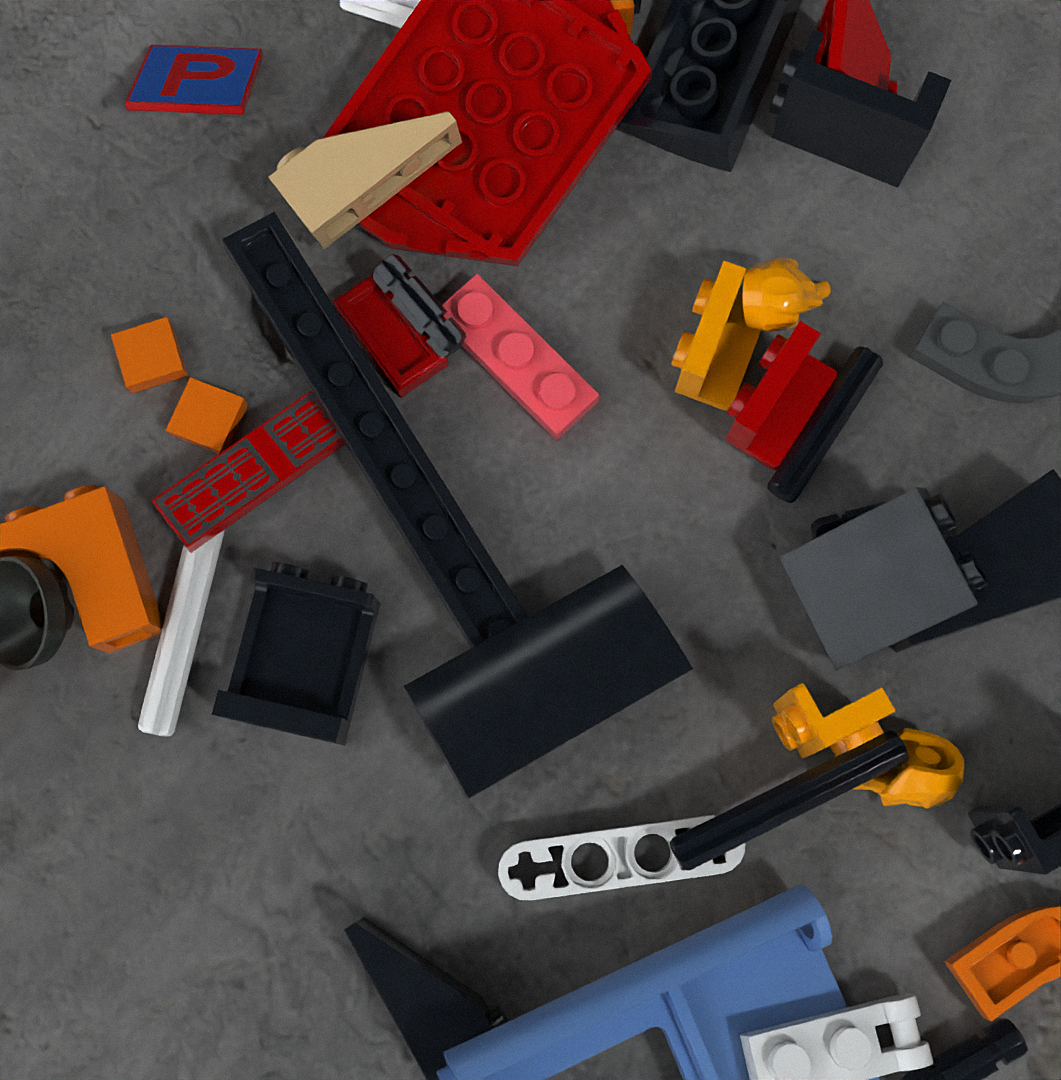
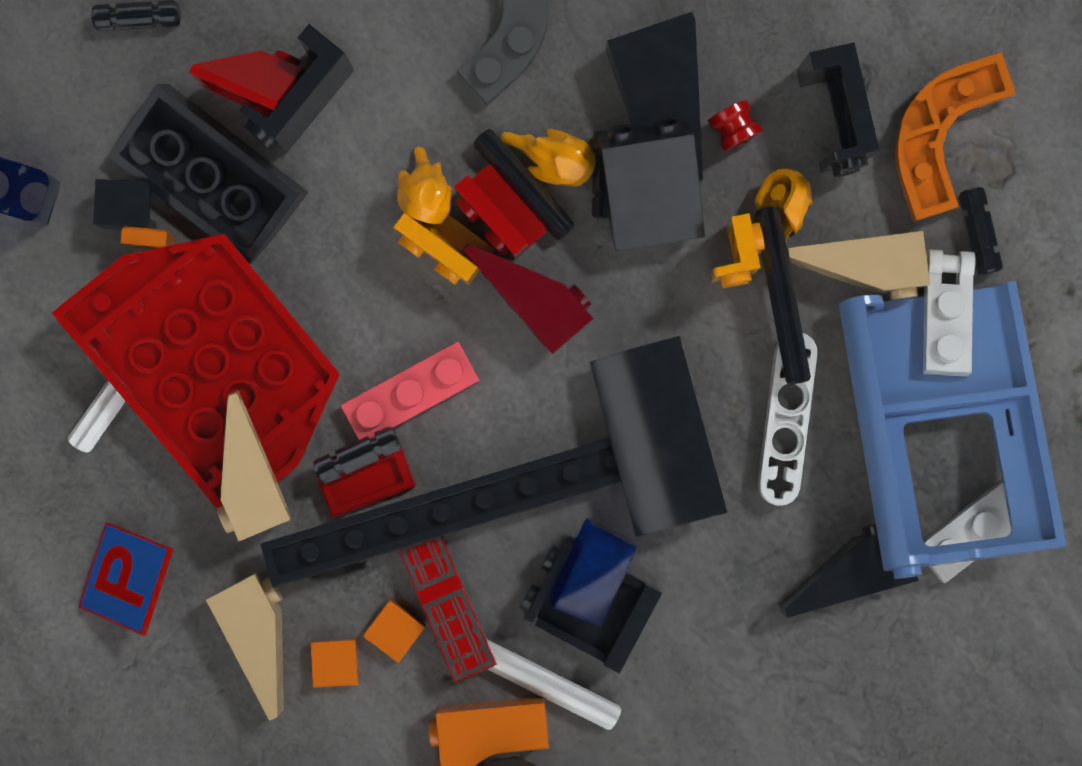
camera: 80 degrees left, 10 degrees up
(156, 248) = (253, 629): none -> tan slope
(340, 642) = (593, 572): none -> clear blue piece
(682, 477) = (540, 302): none -> dark red slope
(870, 916) = (874, 264): none -> tan slope
(875, 457) = (559, 157): none -> light orange piece
(995, 674) = (735, 125): none -> red wheel

